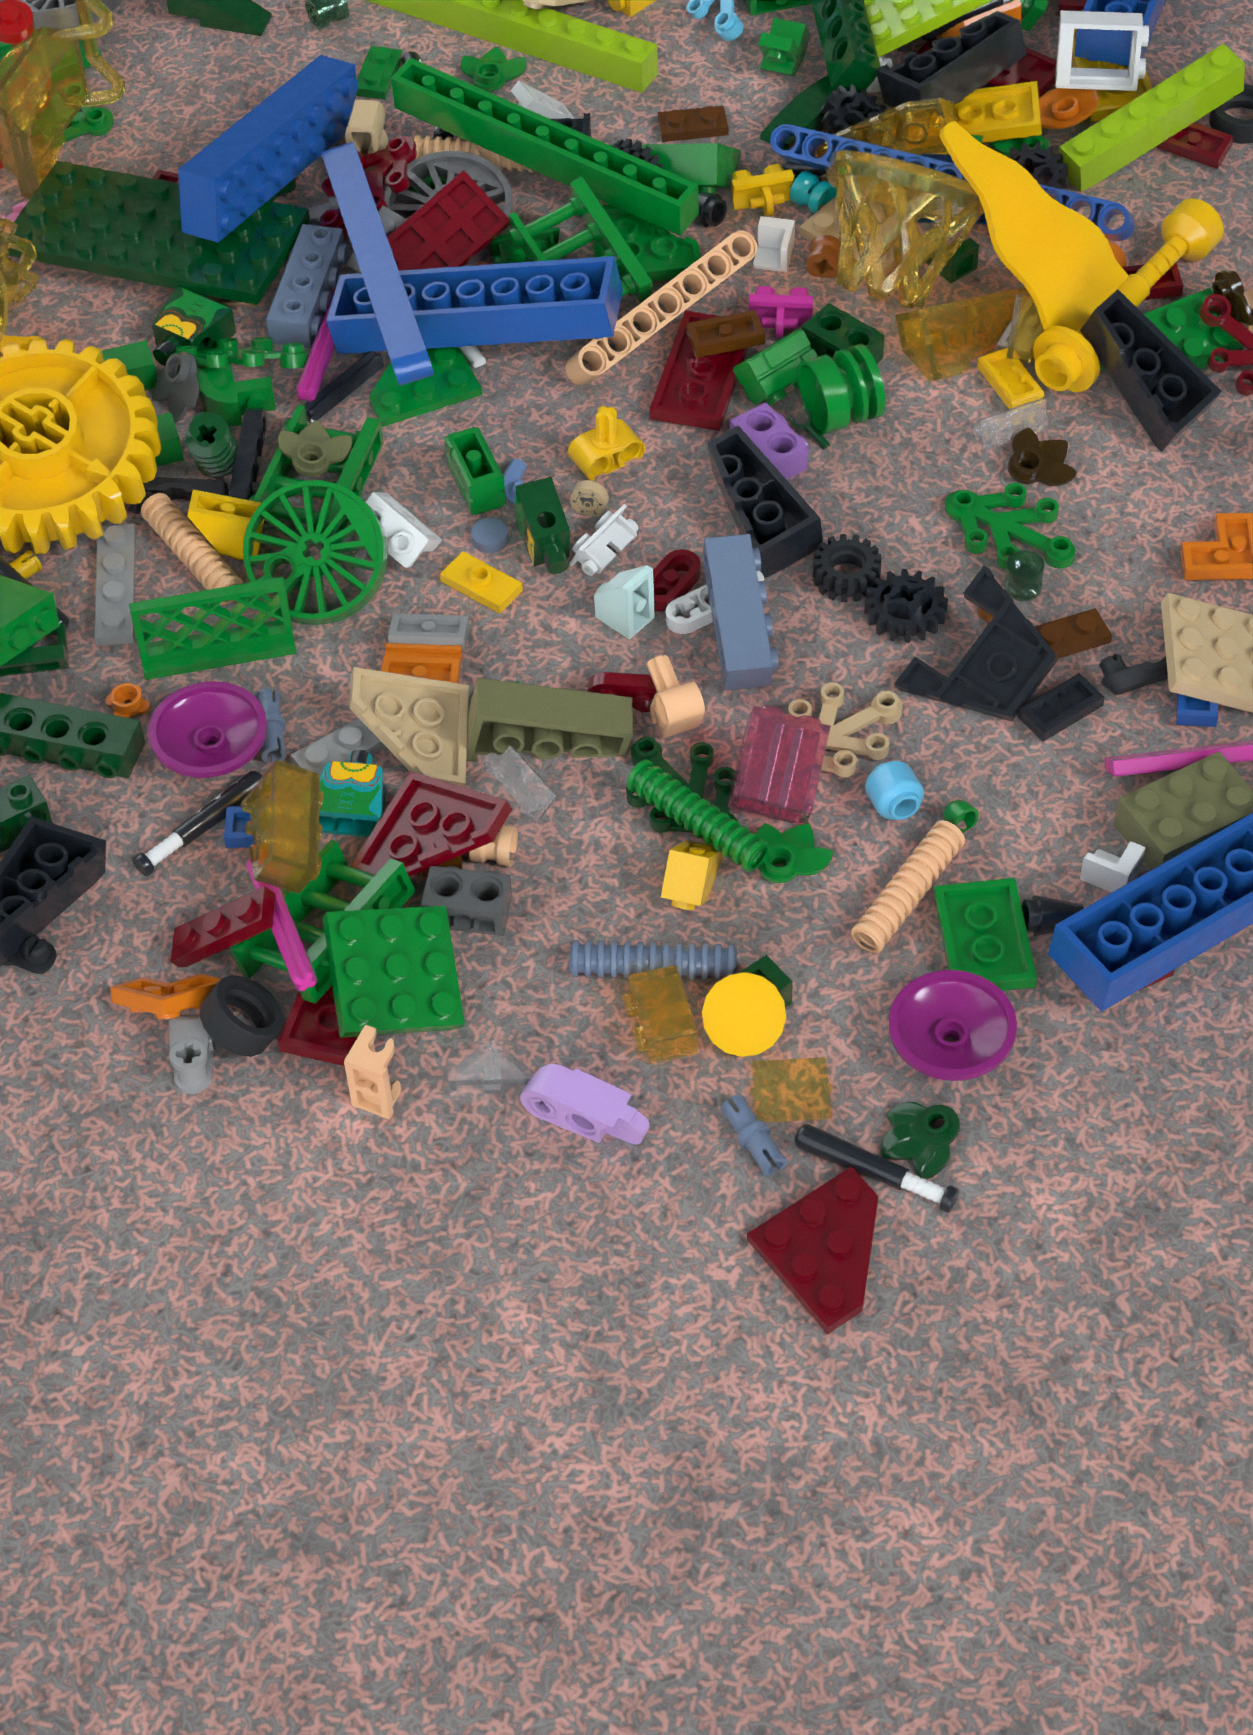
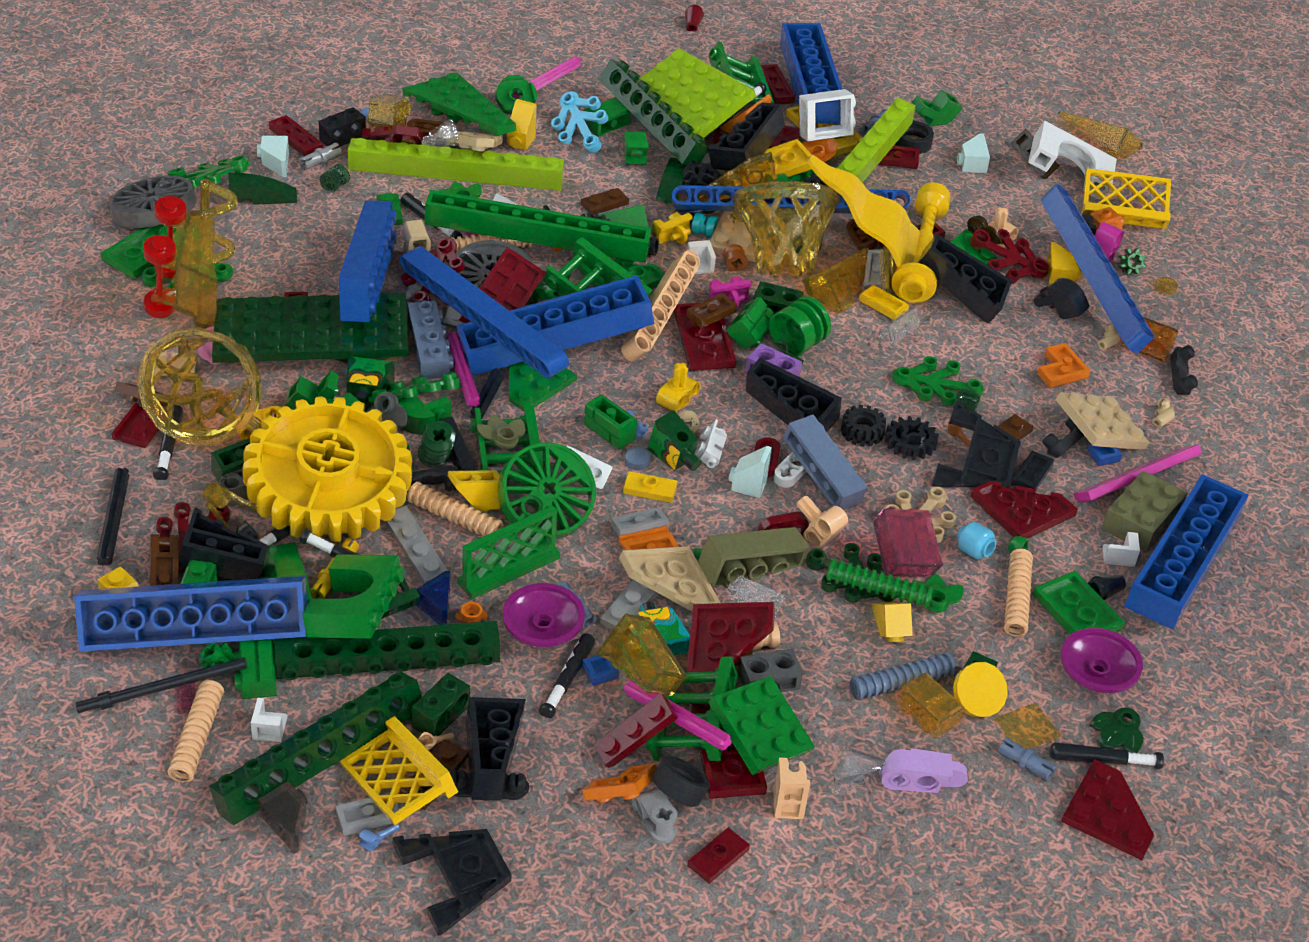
camera: 30 degrees left, 10 degrees down
(95, 664) = (435, 598): none -> clear blue slope
(101, 330) = (308, 390): none -> green brick
(241, 1132) = (718, 855): none -> dark red plate
(1005, 761) = (1022, 509): none -> dark red plate
(1042, 458) = (928, 342): dark brown plate -> none

